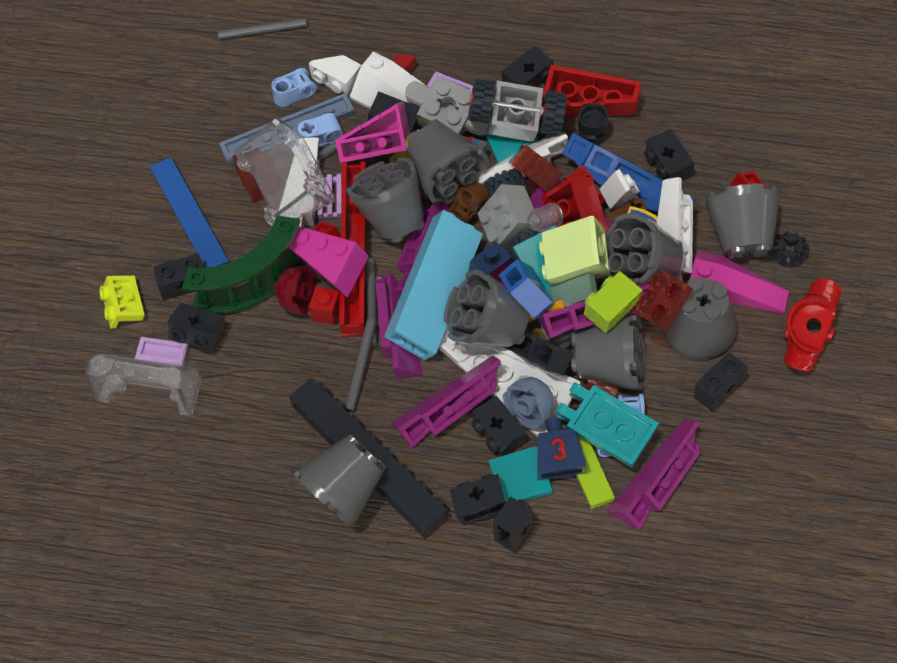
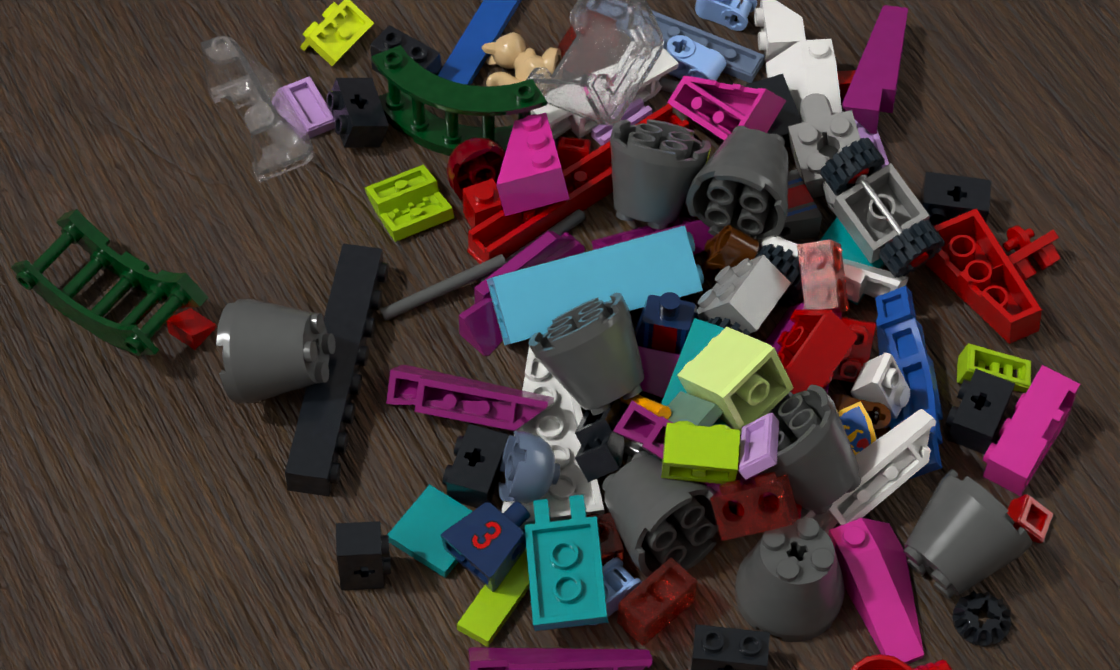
camera: 45 degrees right, 5 degrees down
(203, 527) = (173, 288): none -> dark green fence
(249, 216) = (511, 53): none -> tan animal
(268, 520) = (190, 327): none -> red slope
(282, 344) = (409, 203): none -> lime slope
(414, 44) = (878, 71): none -> magenta wedge
(467, 500) = (368, 499): black brick -> none
(527, 288) = (652, 362): blue slope -> none
(545, 217) = (763, 324): clear brick -> none
(590, 59) = (1041, 249): none -> red hips
(593, 123) = (947, 305): black wheel -> none
(634, 268) = (759, 445): none -> lavender tile
(635, 143) = (983, 357): none -> lime slope
(662, 393) = (657, 601): none -> clear red brick
(702, 144) = (1031, 431): none -> dark pink wedge

